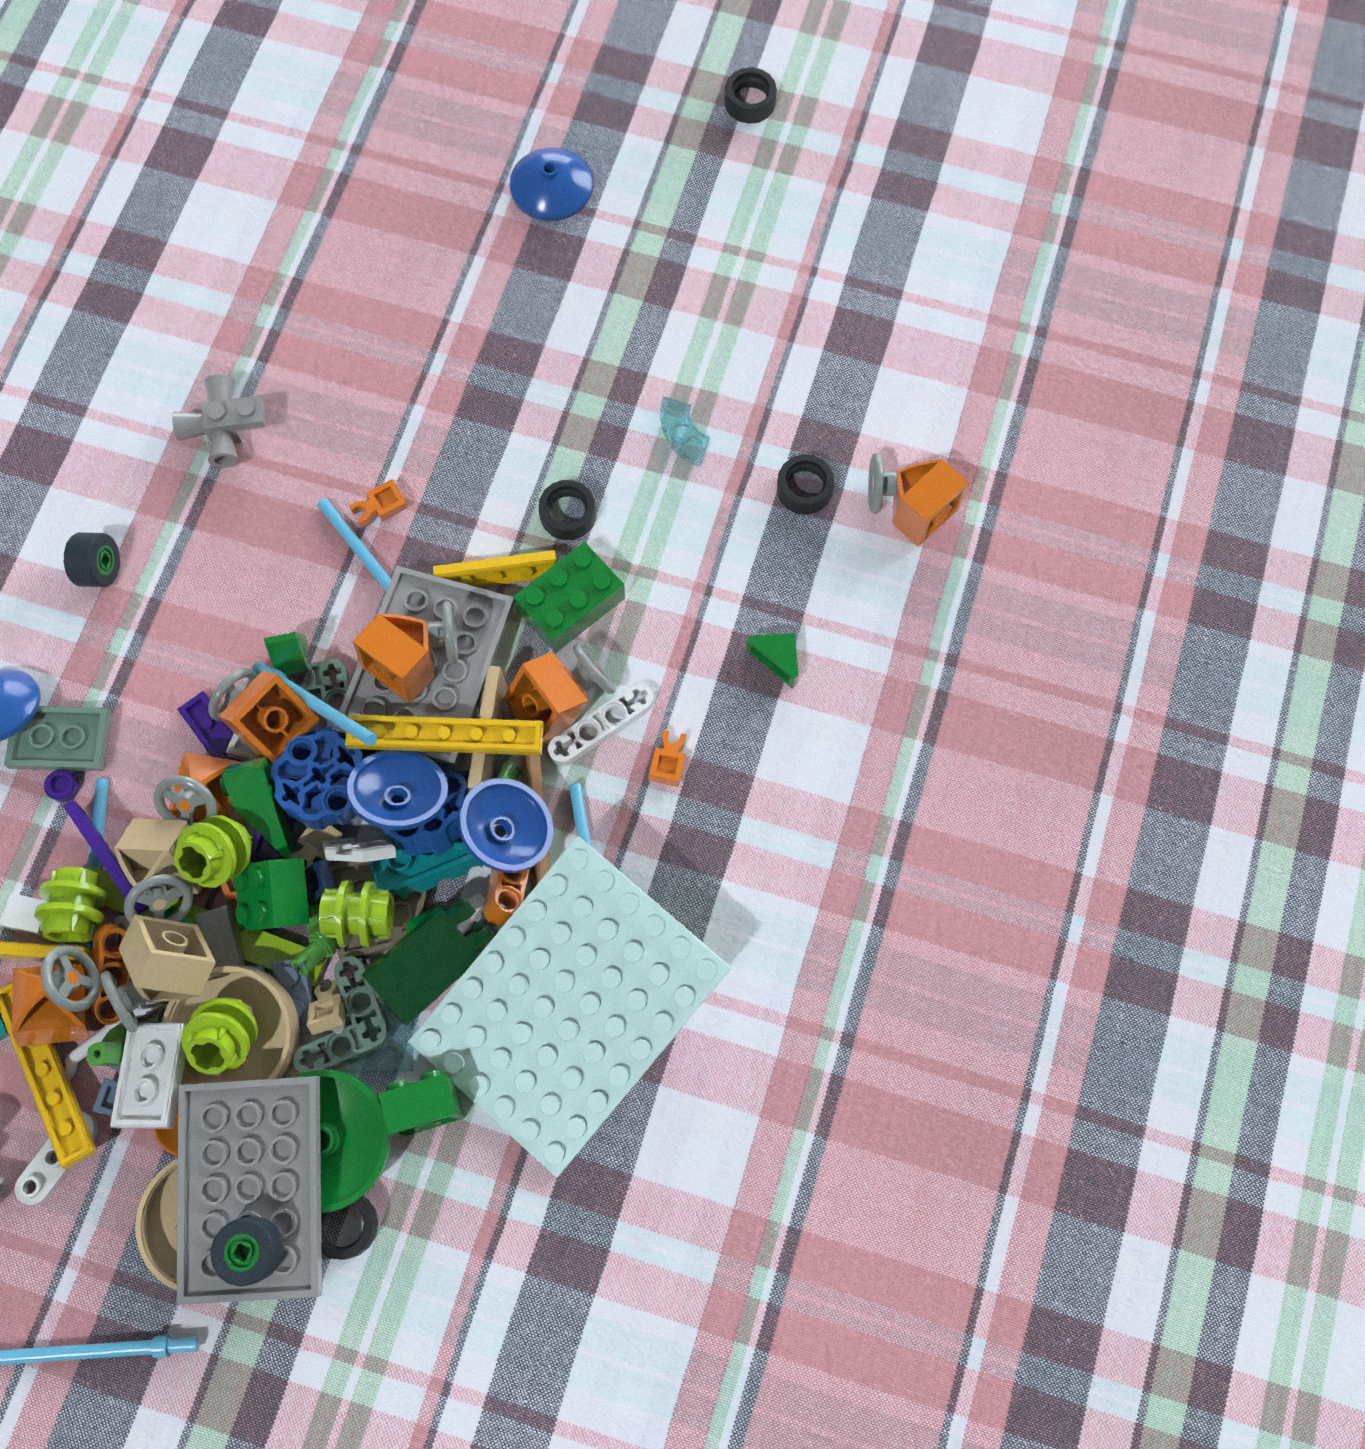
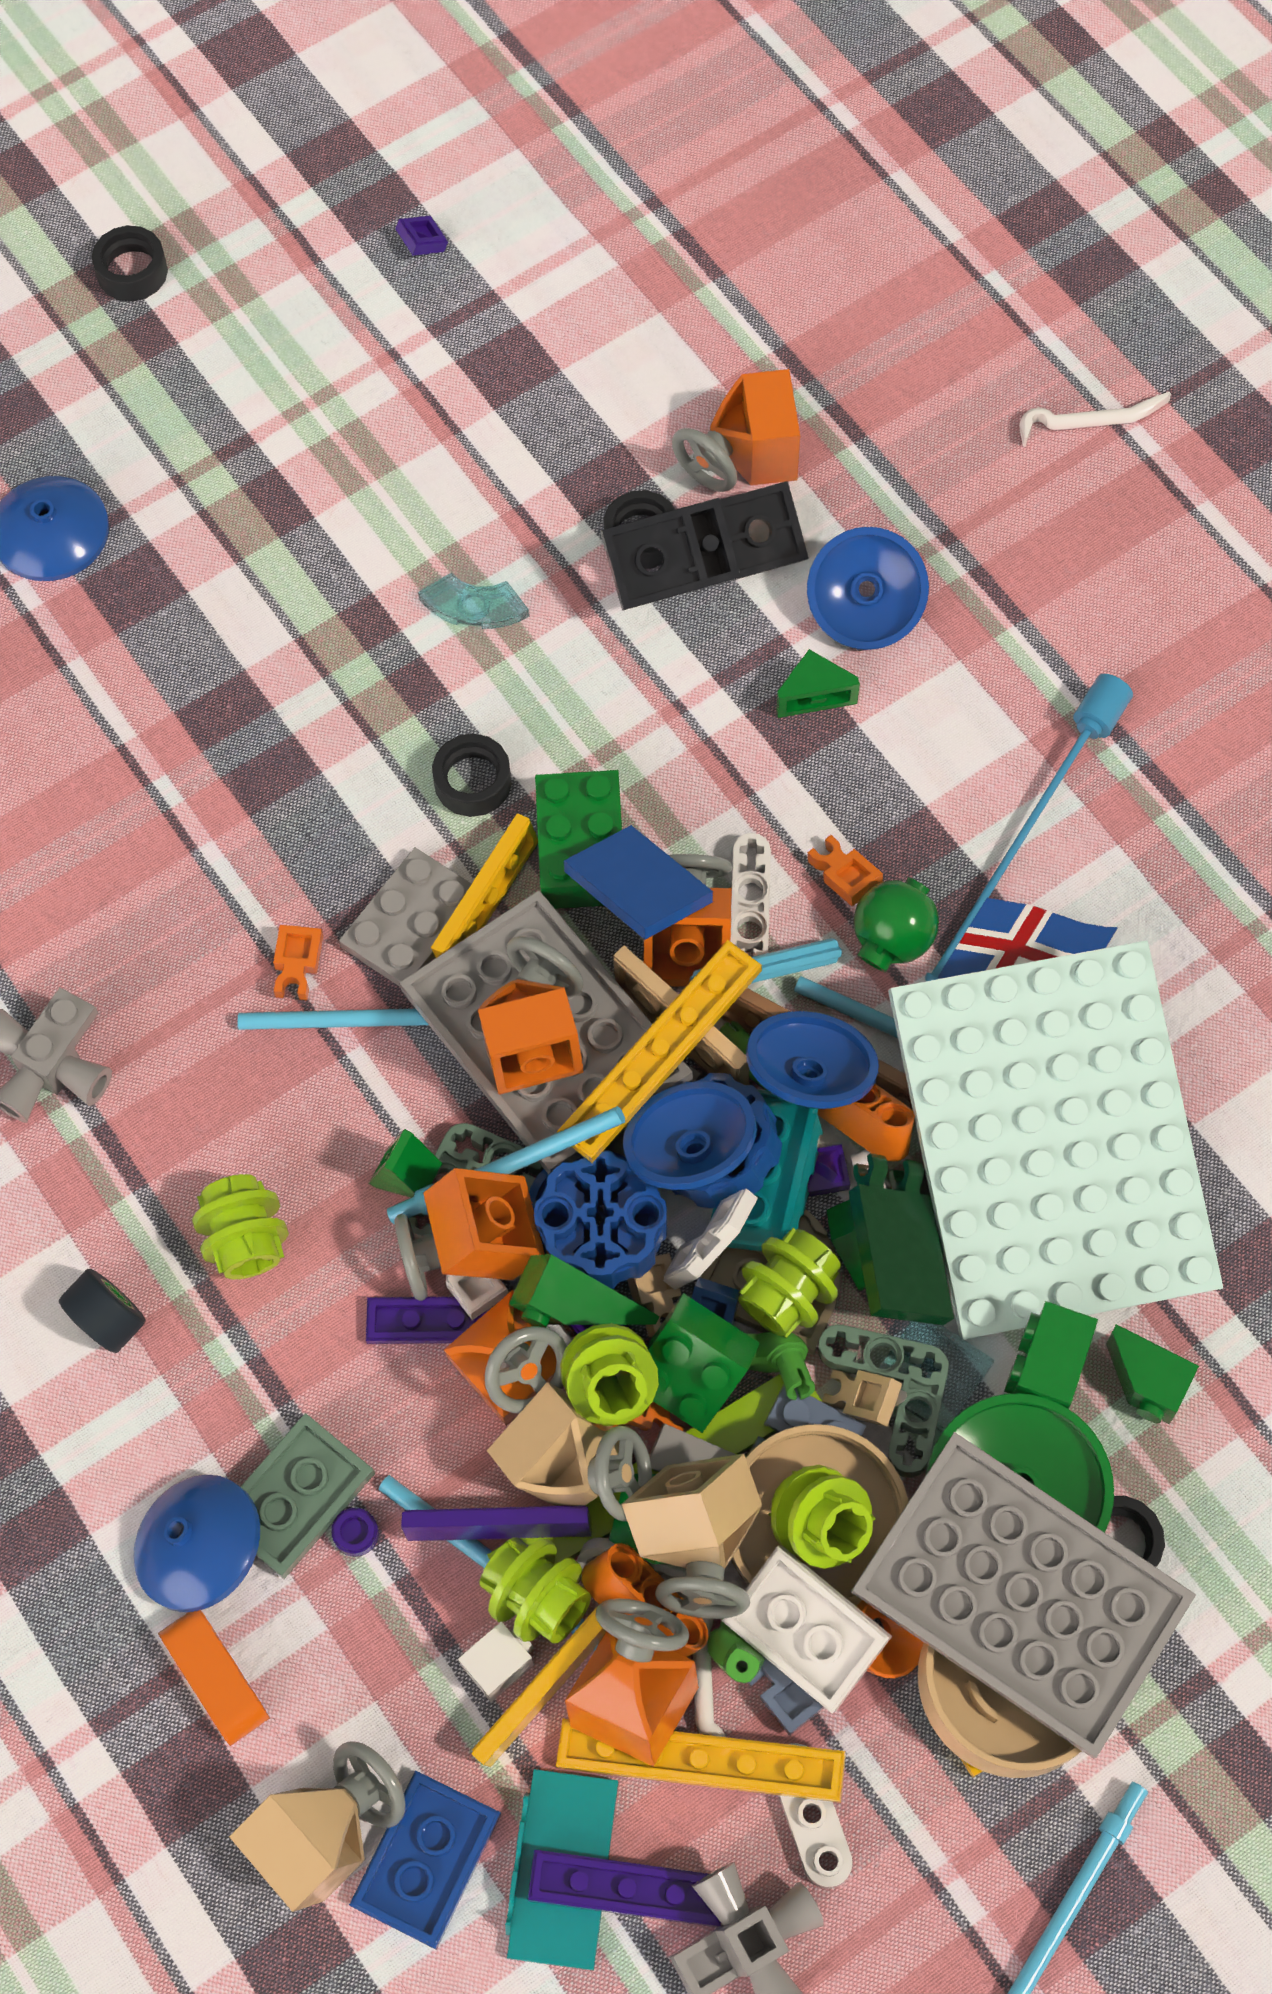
camera: 50 degrees left, 5 degrees down
(188, 592) = (240, 1226): none -> lime piece
(261, 1247) = (1081, 1628): black wheel -> none
(451, 540) = (405, 917): none -> light grey plate
(463, 1171) = (1149, 1375): none -> green slope
(464, 886) = (829, 1172): none -> dark purple tile
(545, 645) = (638, 882): none -> blue tile
(578, 767) = (796, 959): none -> medium azure axle
(651, 812) = (895, 923): none -> green brick
(703, 899) = (1018, 933): none -> flag
(813, 524) = (704, 545): none -> black bracket
(847, 634) = (898, 582): none -> blue dish
(902, 226) = (421, 235): none -> dark purple tile
(1108, 685) = (1090, 418): none -> white piece

